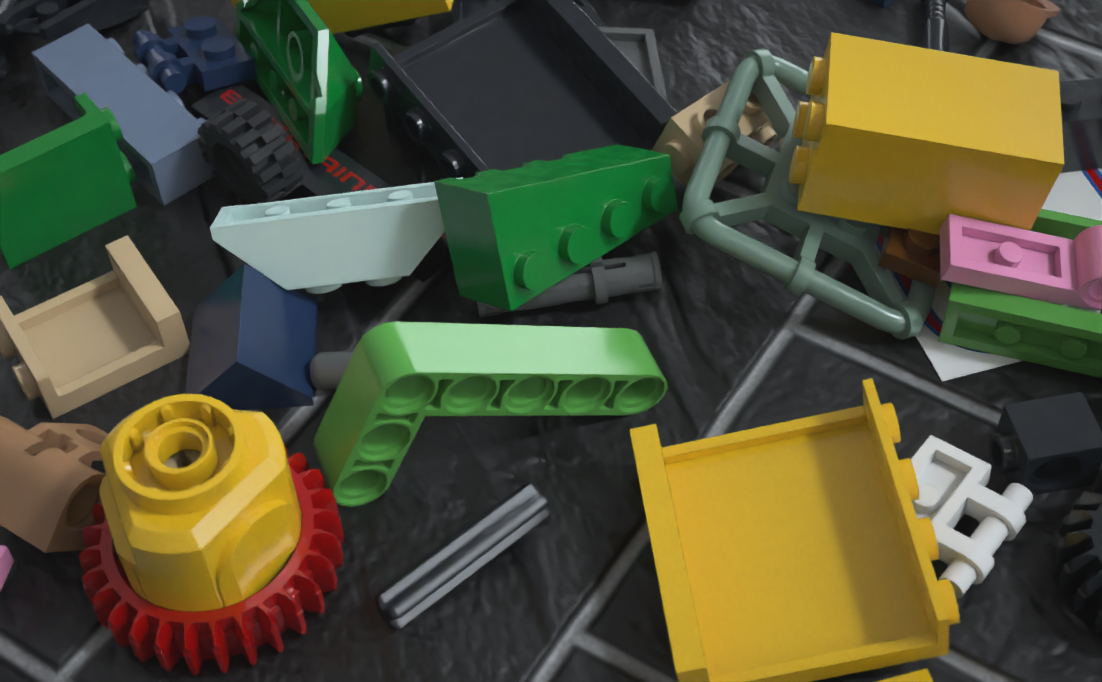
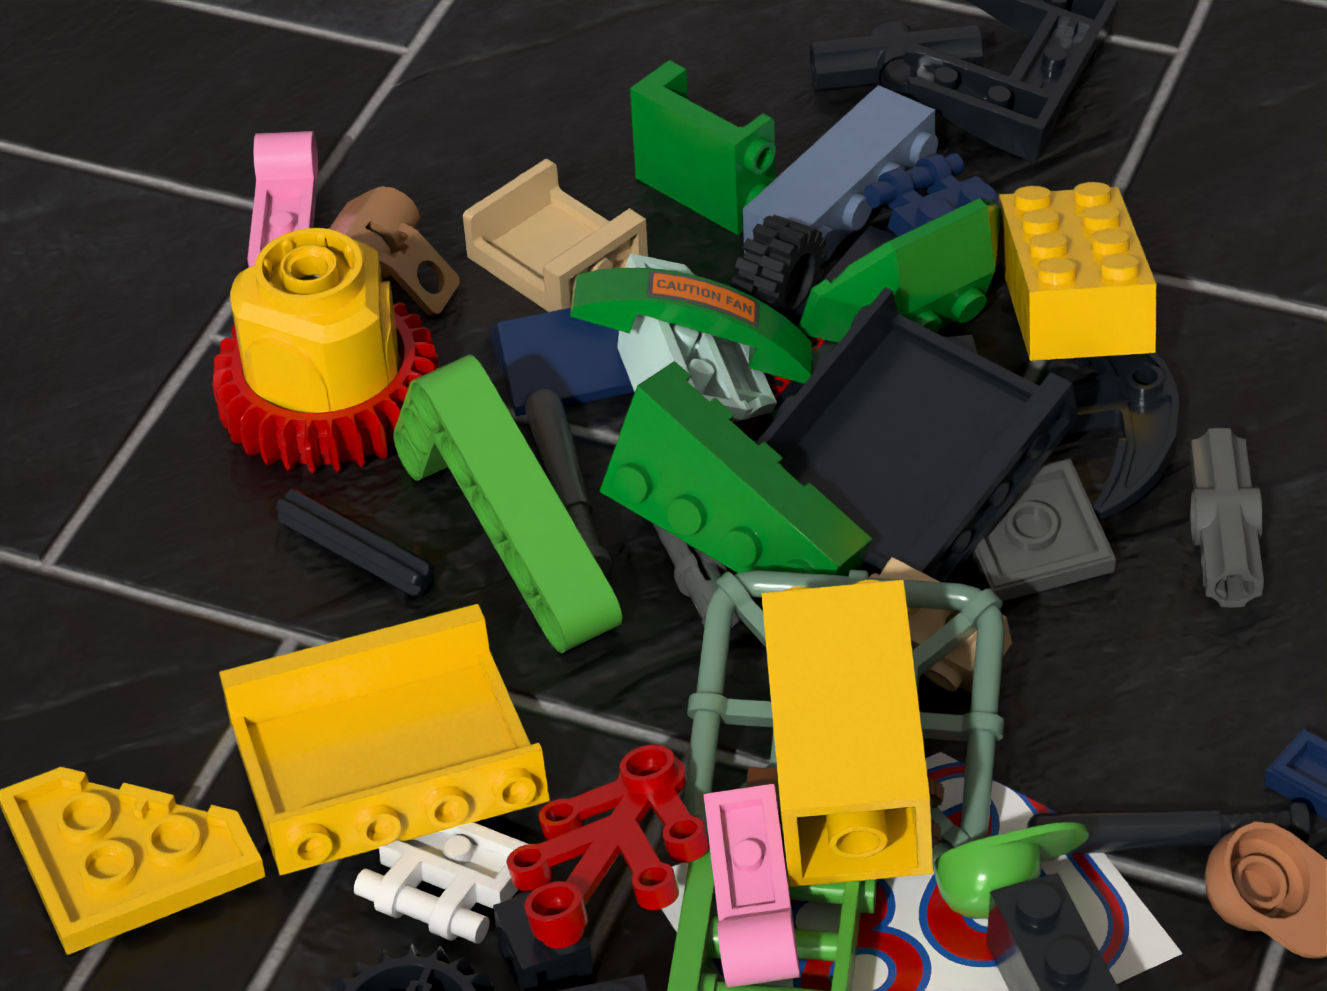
camera: 80 degrees right, 5 degrees down
(285, 223) = (694, 302): none -> green slope
(968, 352) = (646, 780): none -> red plant

